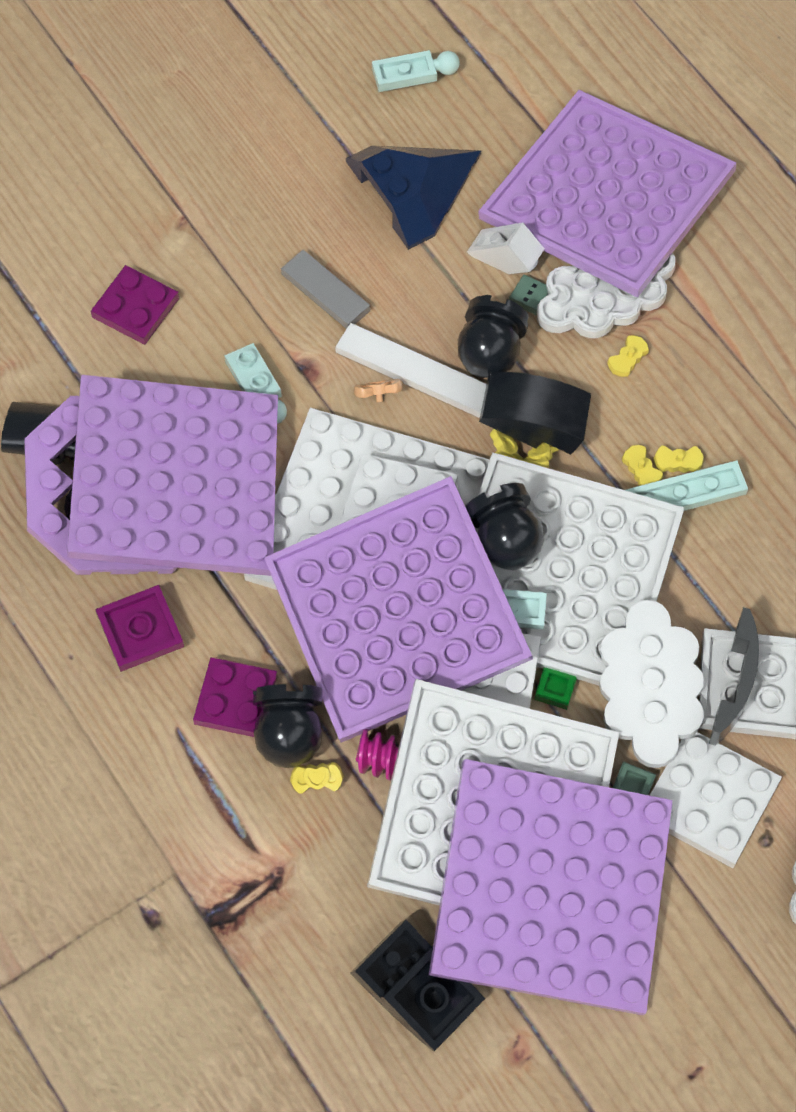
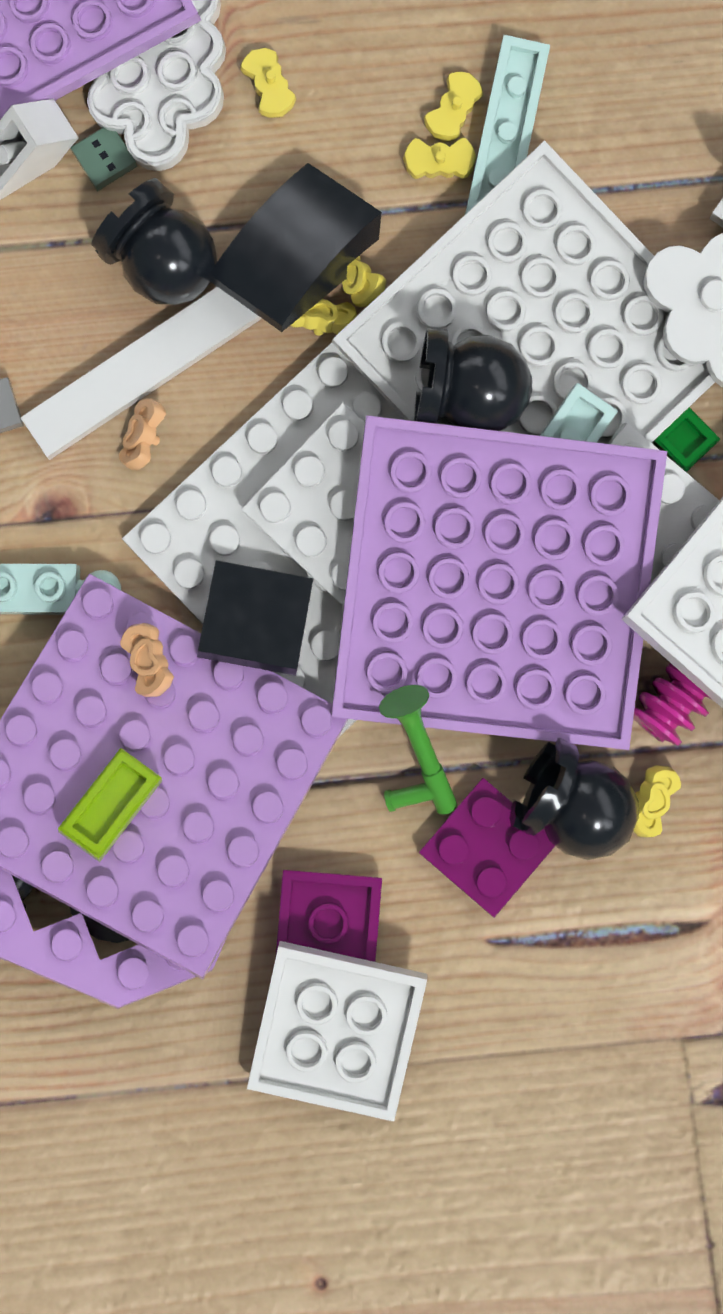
camera: 55 degrees left, 20 degrees up
(75, 660) = (337, 1031): none -> white plate
(144, 456) = (110, 805): none -> lime tile
(241, 439) = (147, 659): none -> light nougat piece
(256, 645) = (406, 706): none -> bright green piece
(300, 490) = (255, 618): none -> black tile

